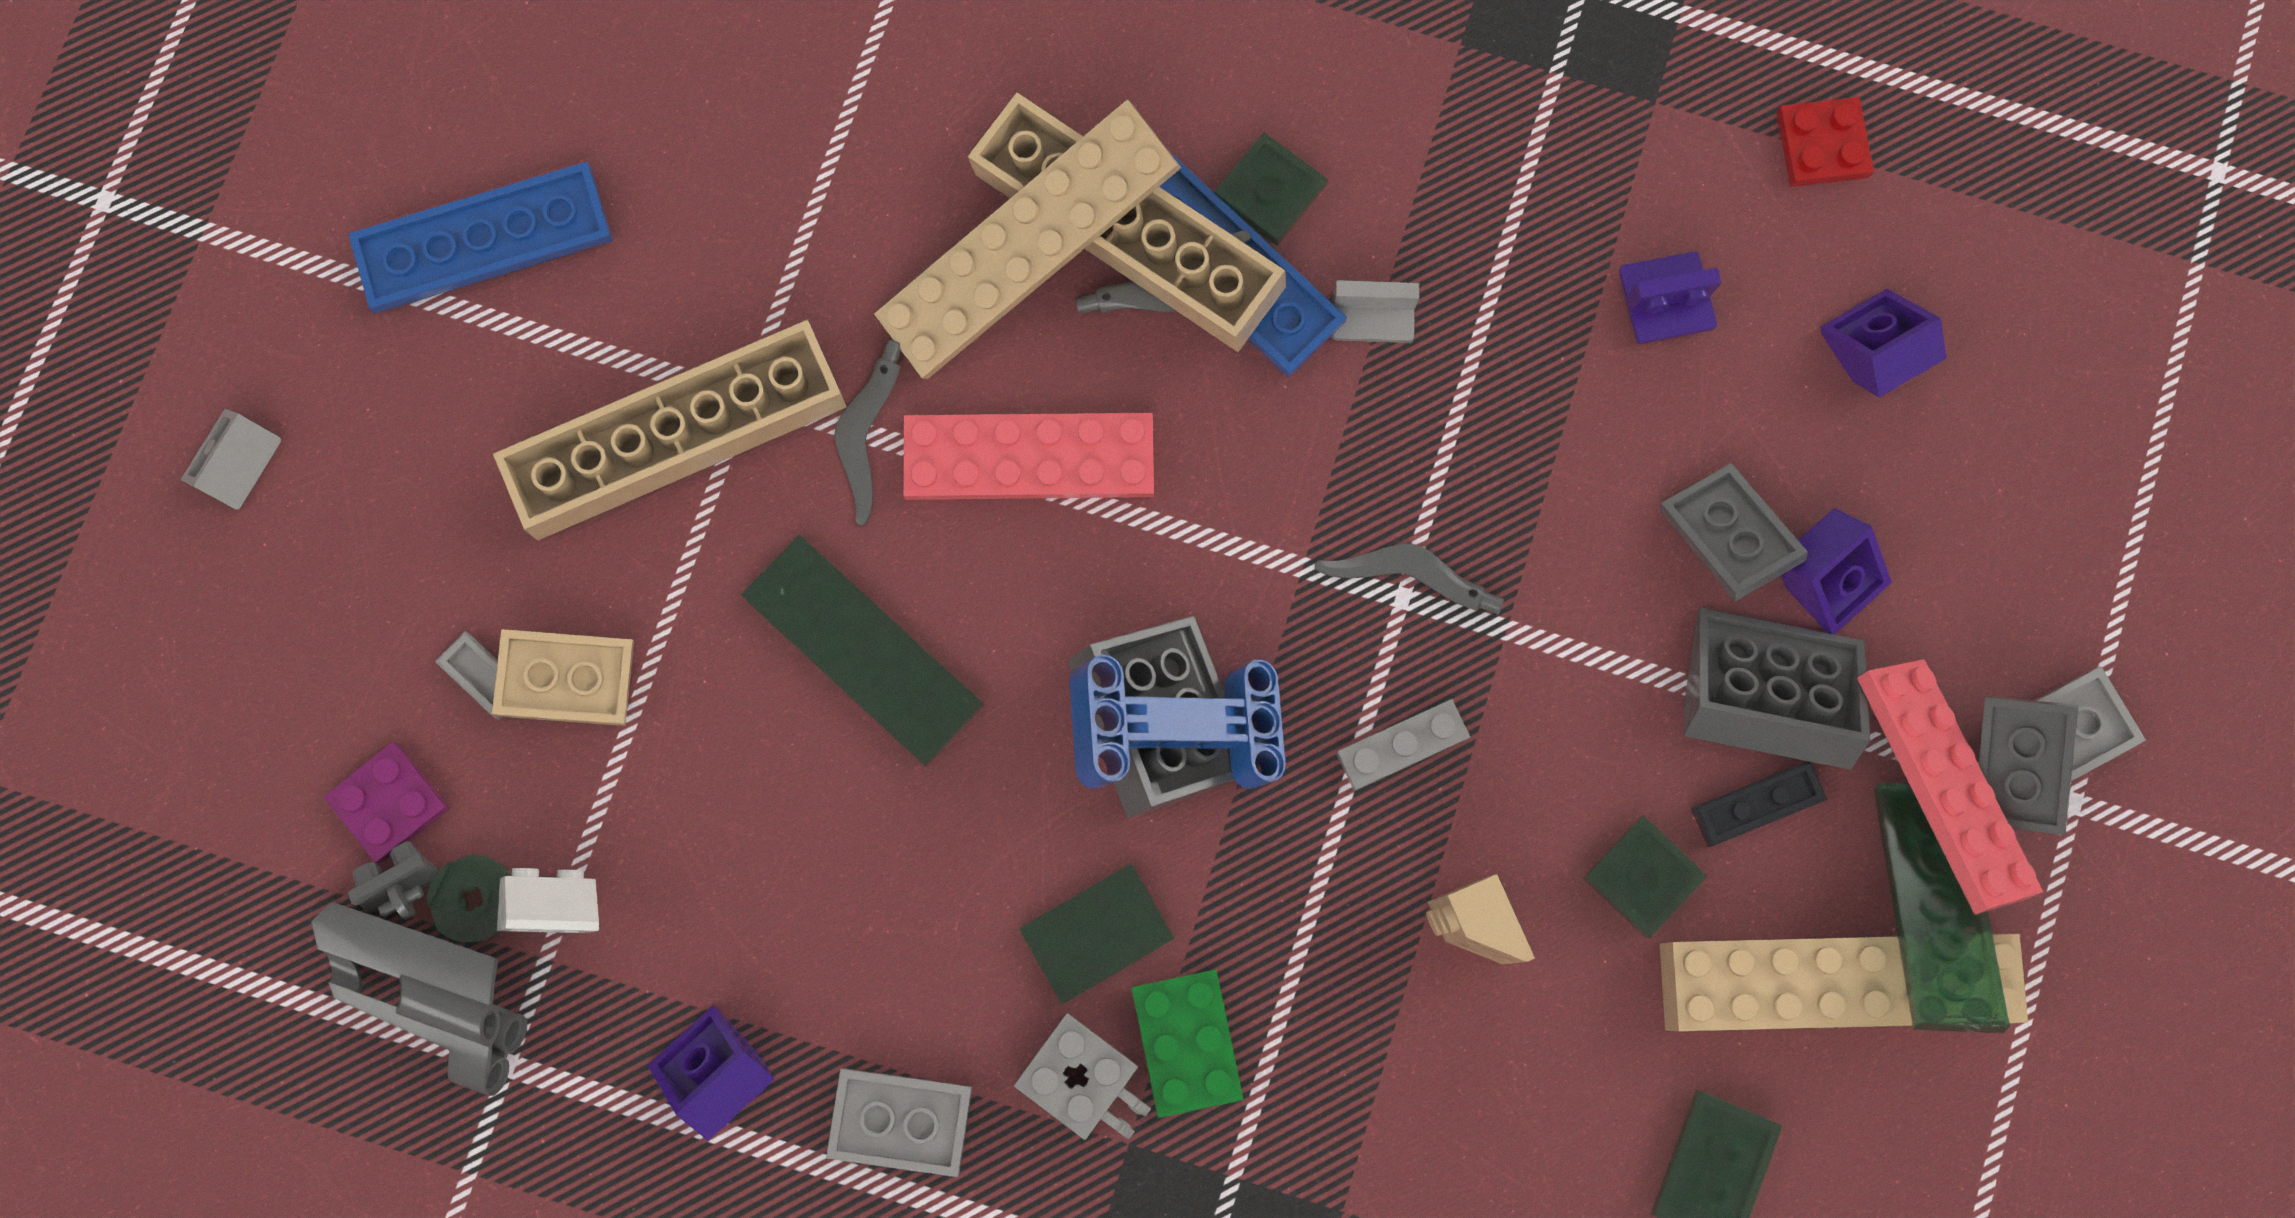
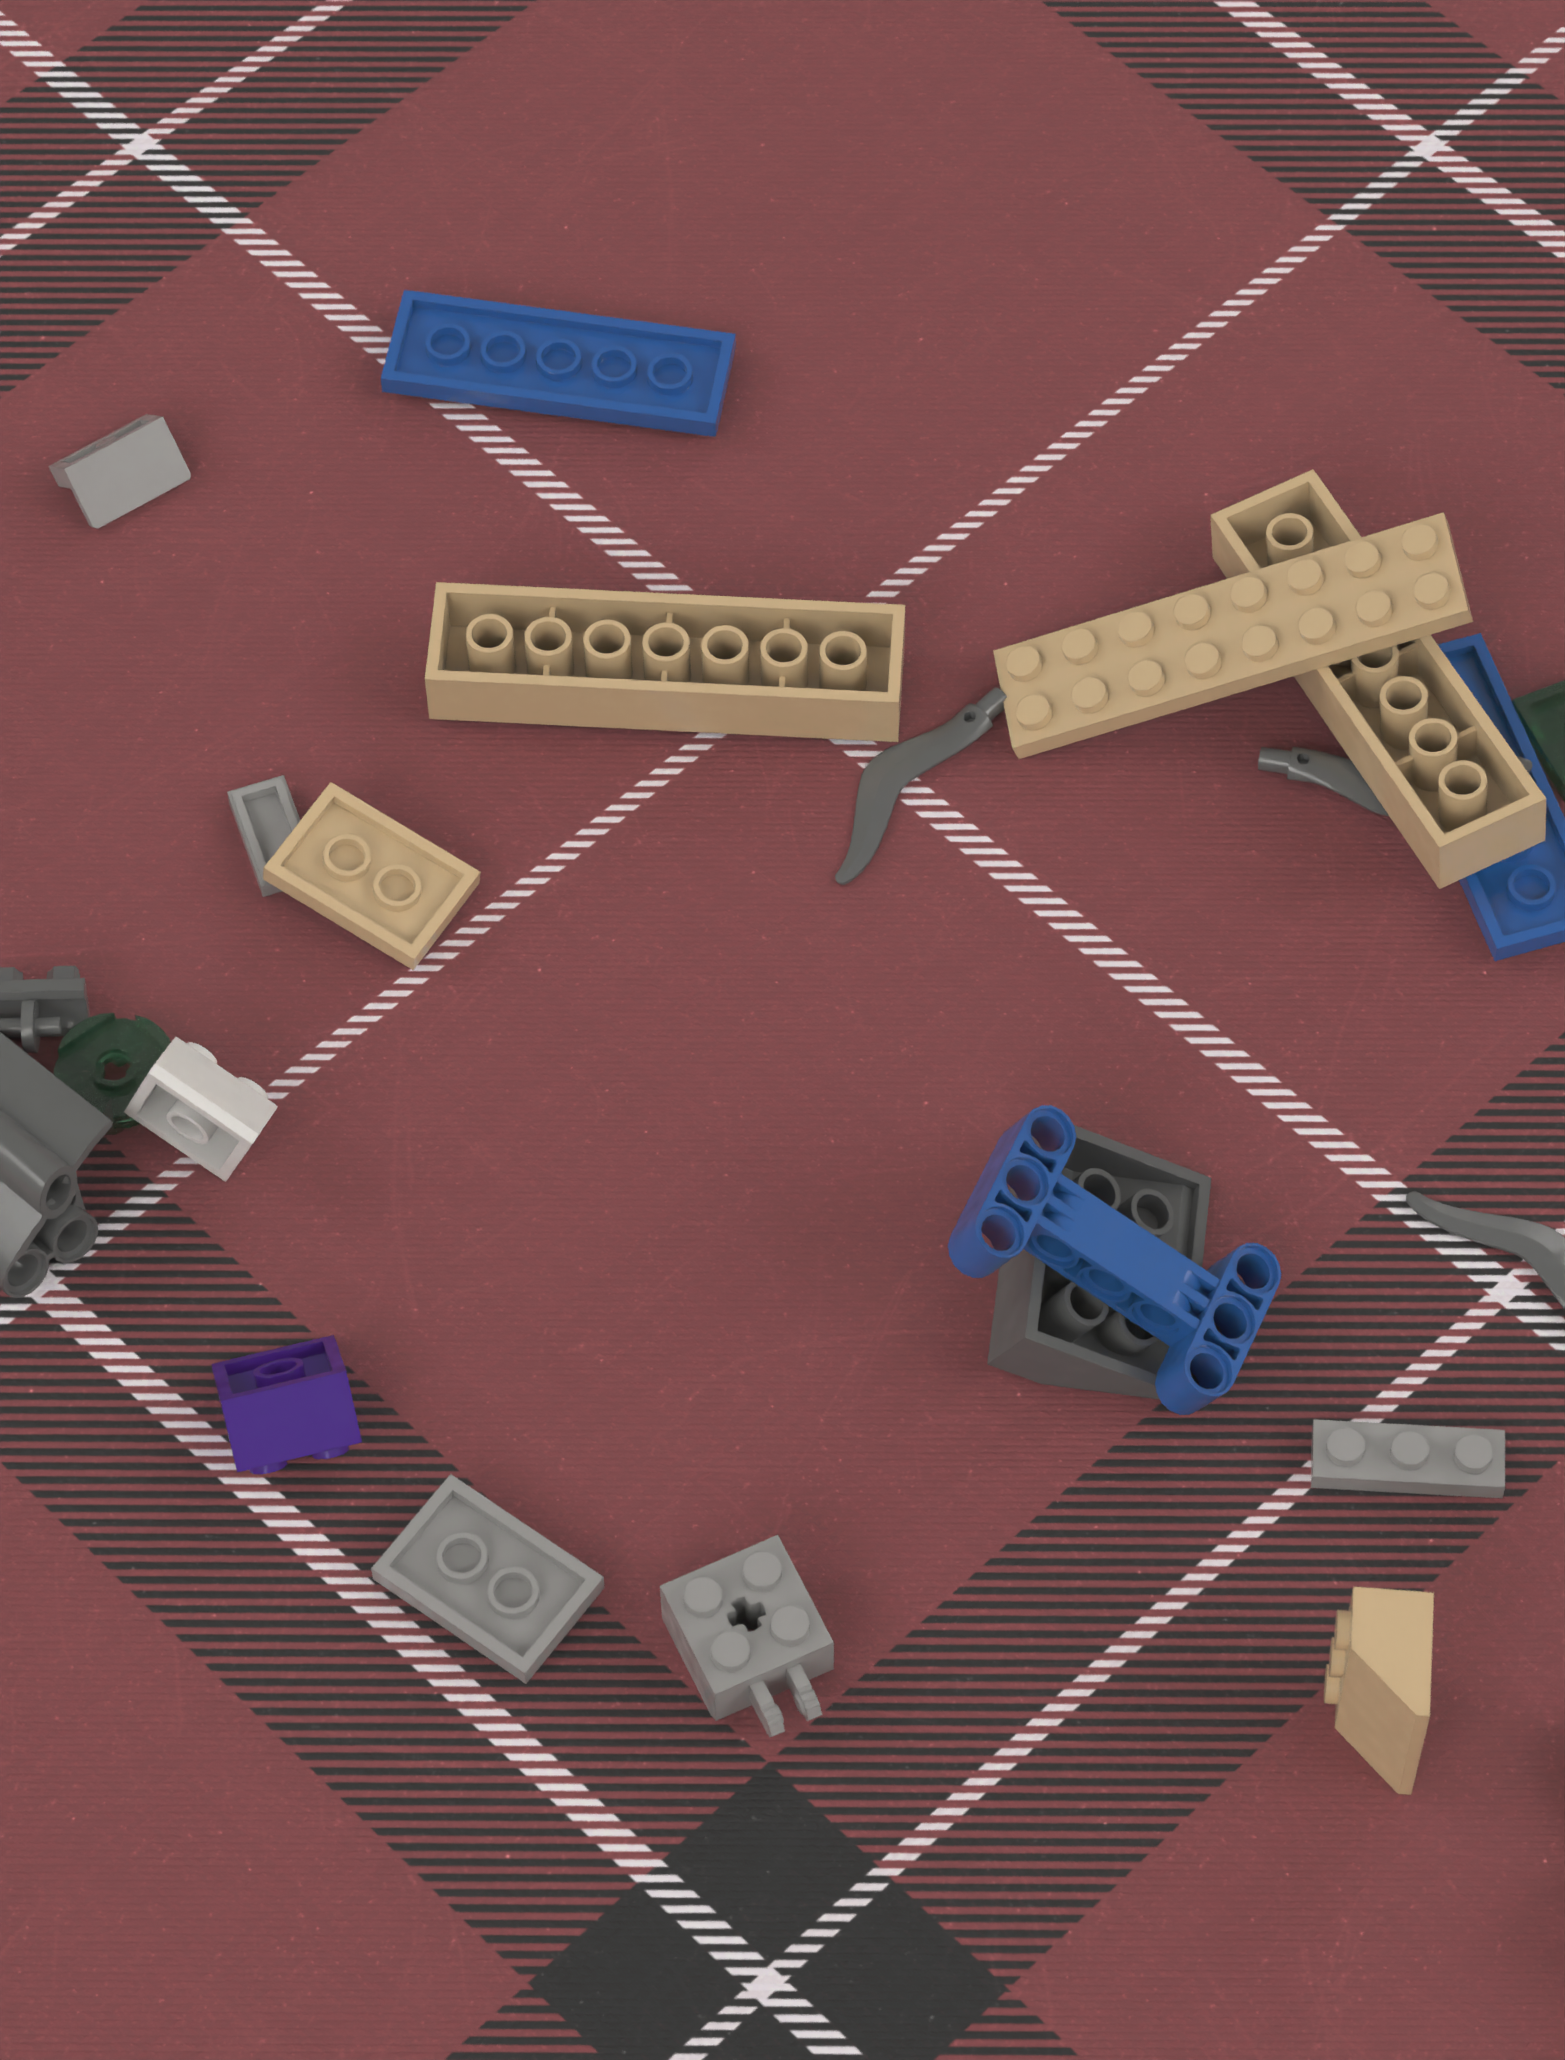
camera: 35 degrees right, 20 degrees down
(386, 802) = (76, 918): magenta plate -> none
(862, 650) = (759, 1023): clear green plate -> none
(1028, 456) = (1100, 899): coral plate -> none
(1096, 933) = (870, 1487): clear green plate -> none
(1187, 1043) = (914, 1675): green plate -> none

